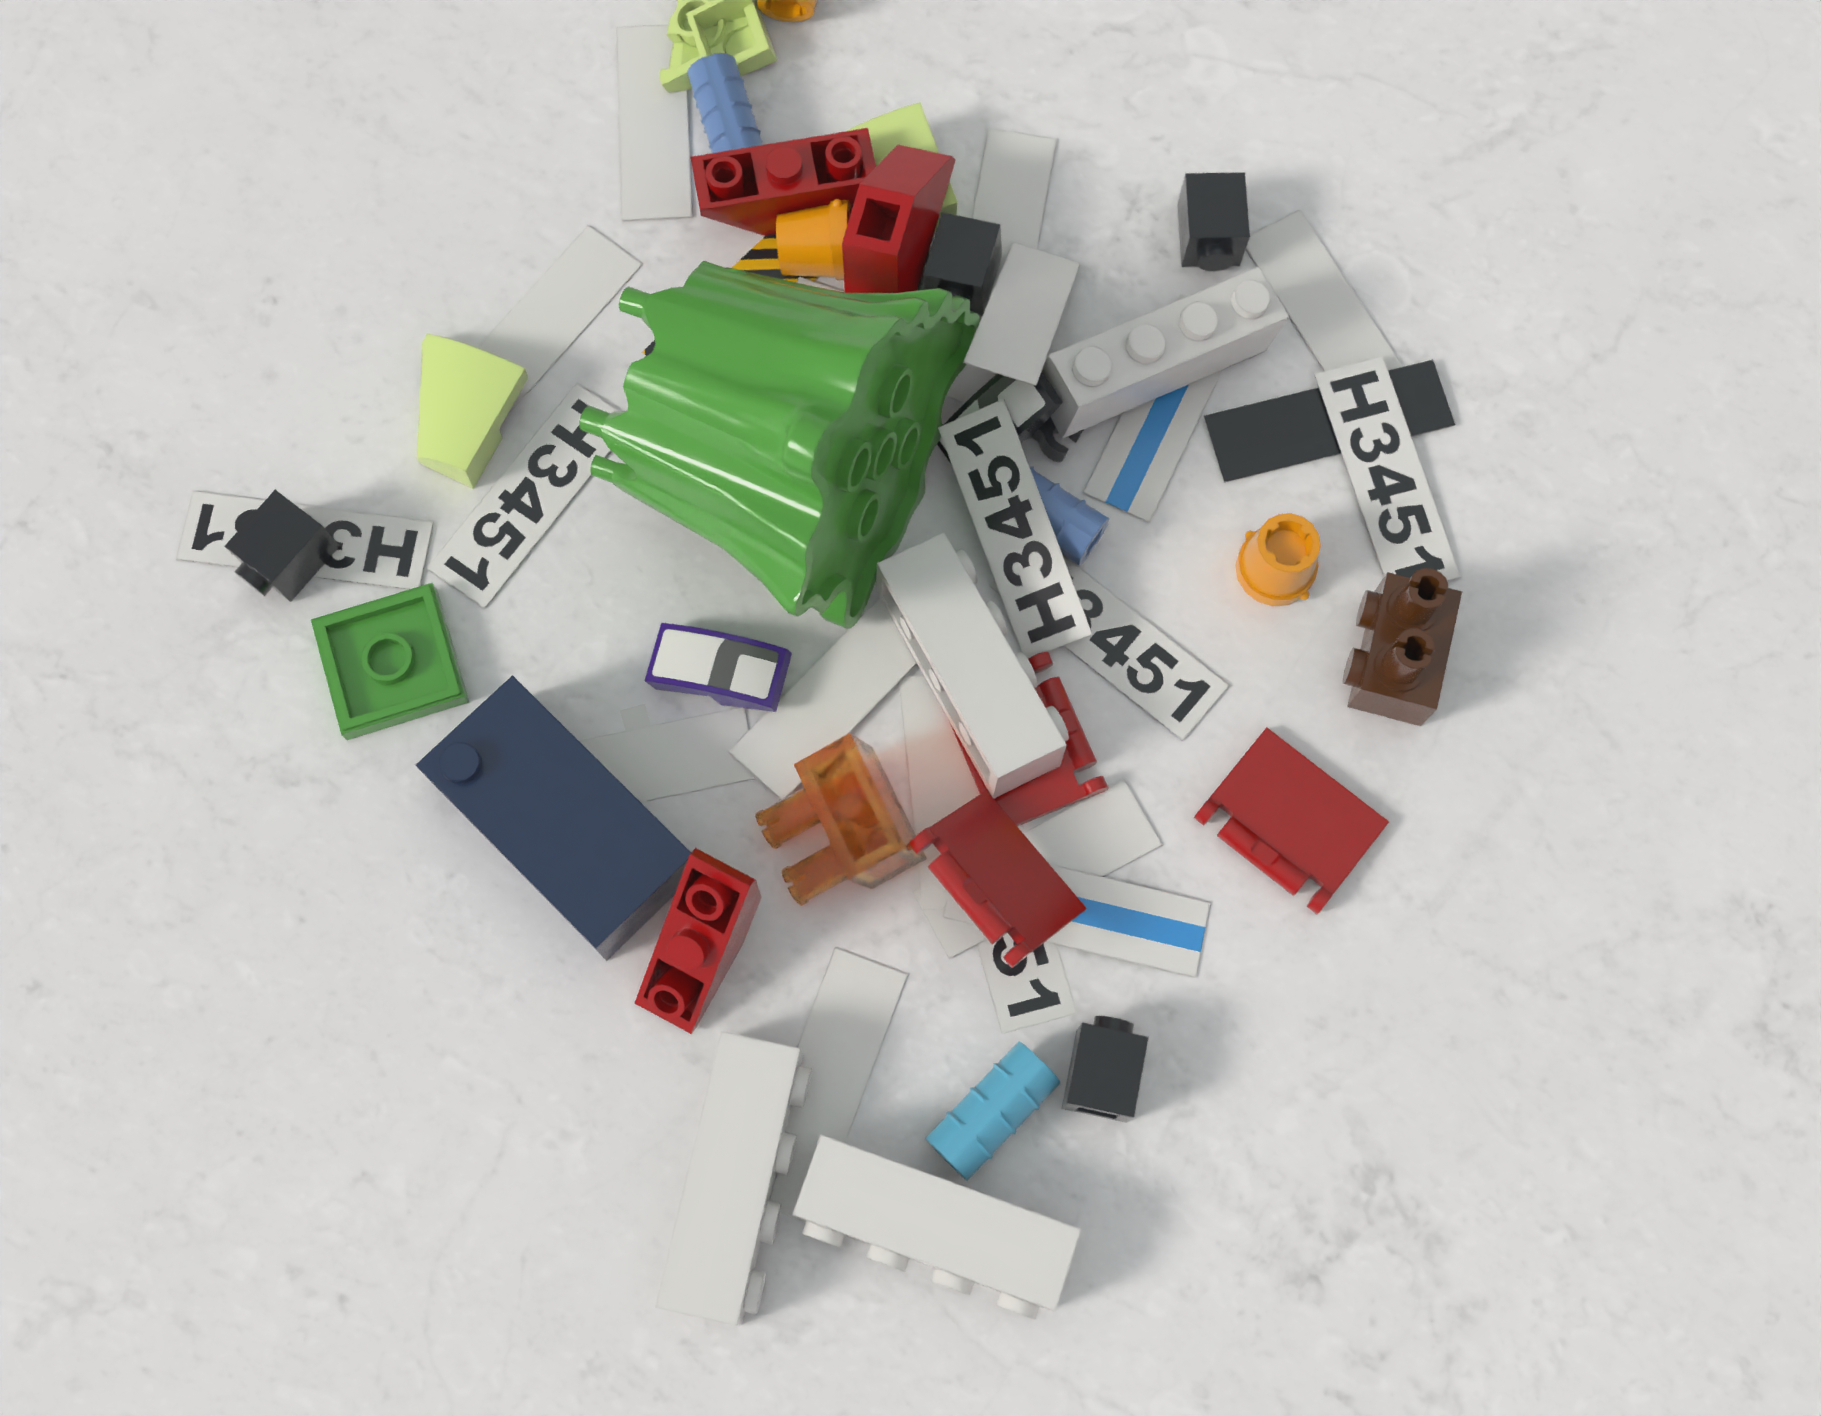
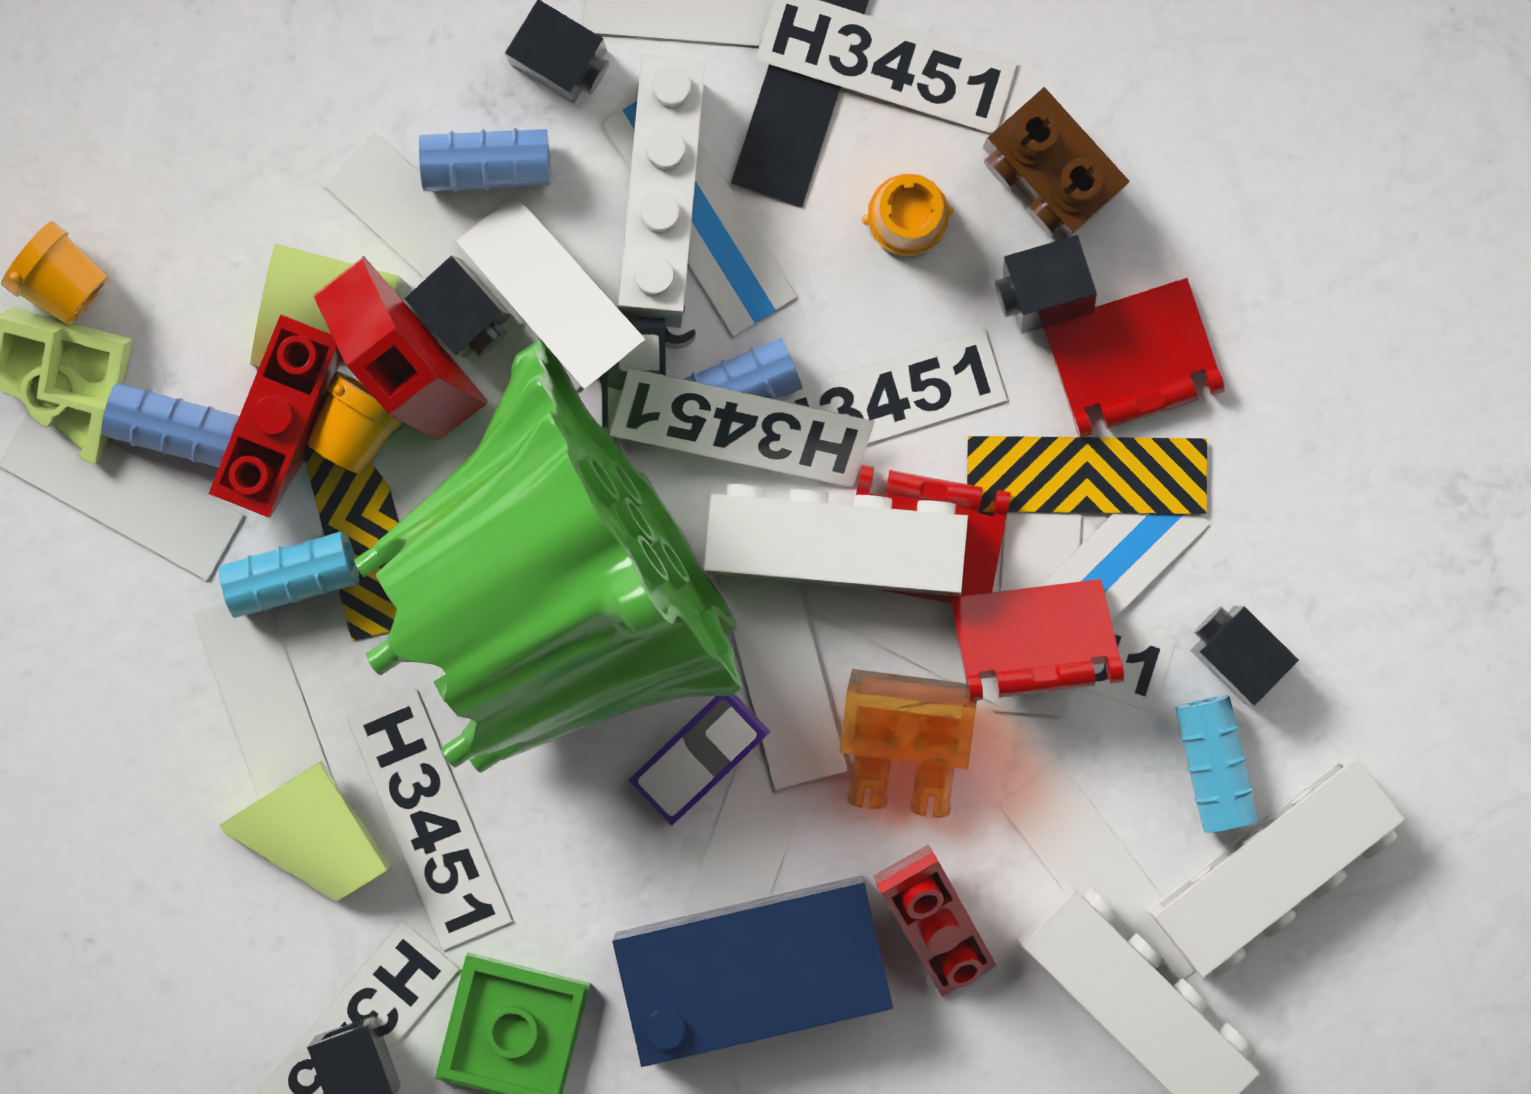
camera: 55 degrees left, 15 degrees up
(649, 252) = (288, 574): none -> medium azure axle
(1091, 219) = (484, 160): none -> medium blue axle
(1170, 849) = (1090, 473): none -> sticker
(1301, 702) = (1046, 285): none -> black brick

